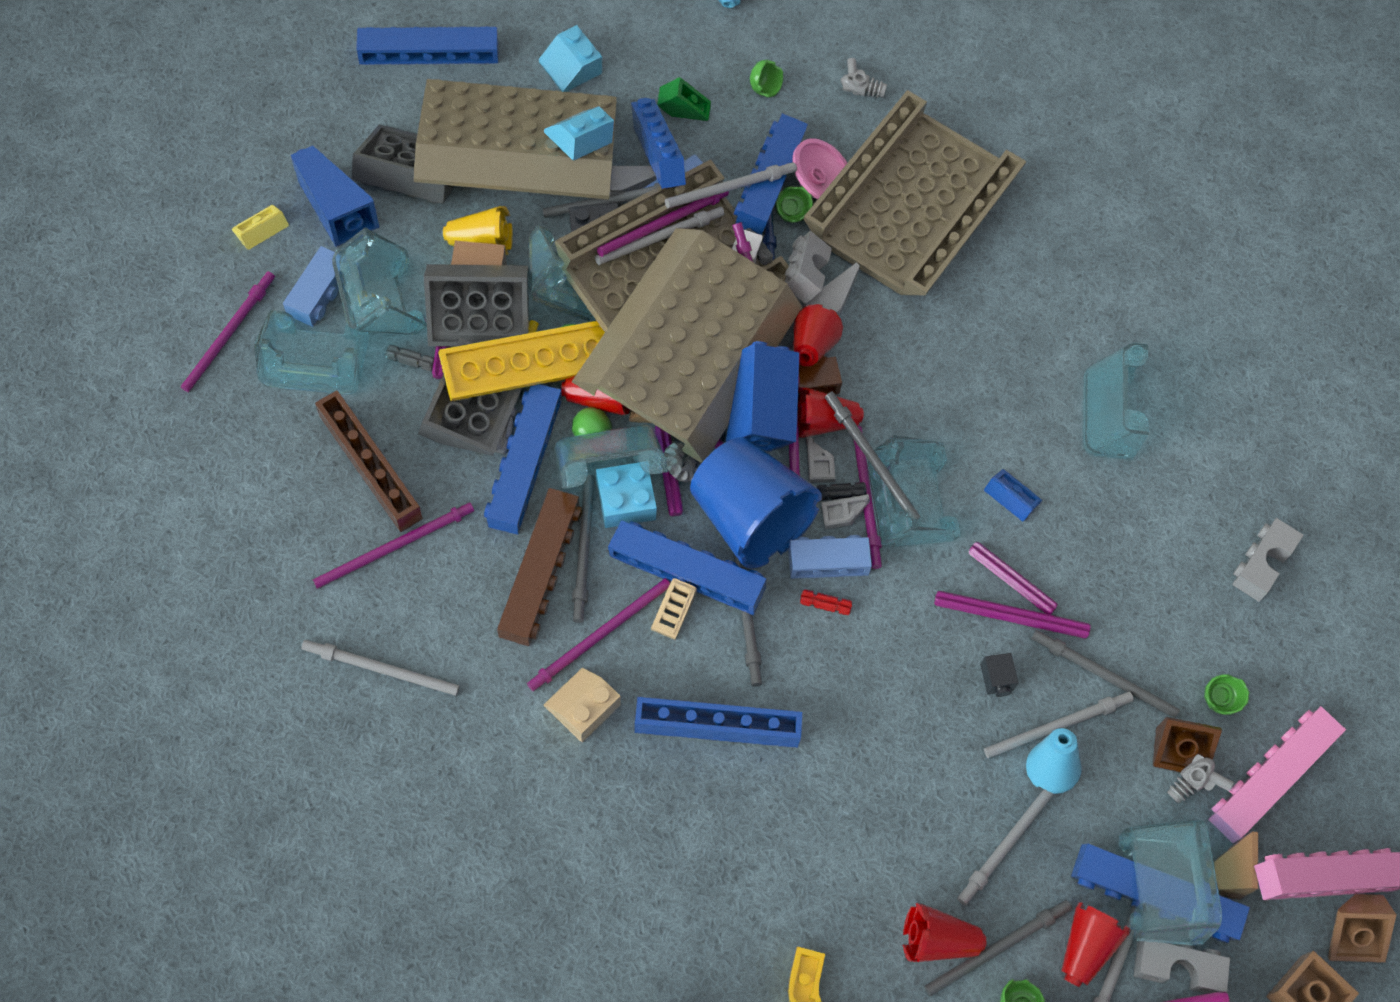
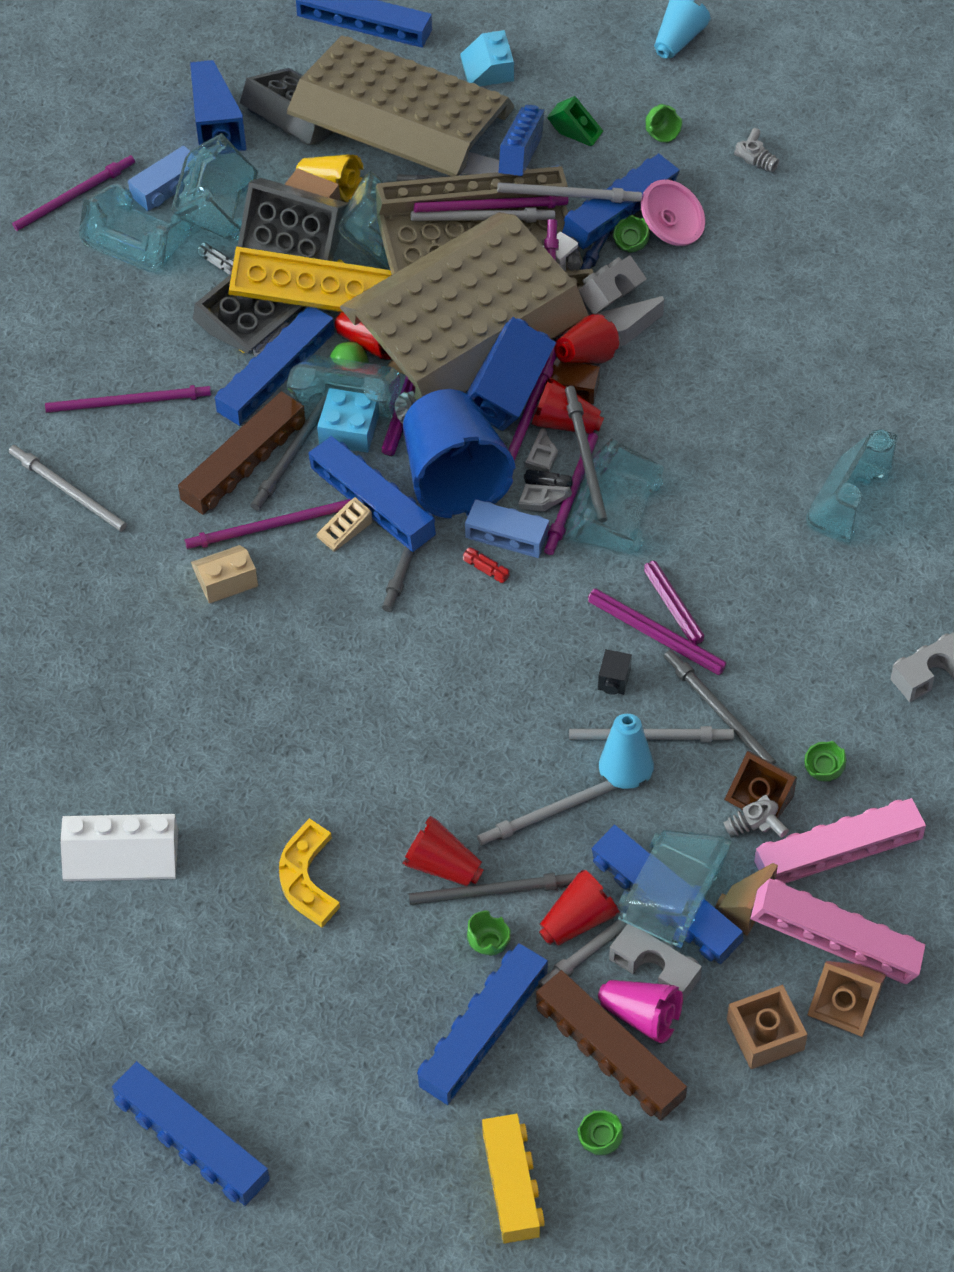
camera: 30 degrees right, 10 degrees down
(260, 226) = (143, 120): light yellow slope -> none
(369, 461) = (138, 324): reddish brown brick -> none
(582, 132) = (452, 110): medium azure slope -> none
(718, 722) = (333, 621): blue brick -> none
(910, 198) = (744, 255): dark tan slope -> none
(1012, 495) = (713, 535): blue slope -> none

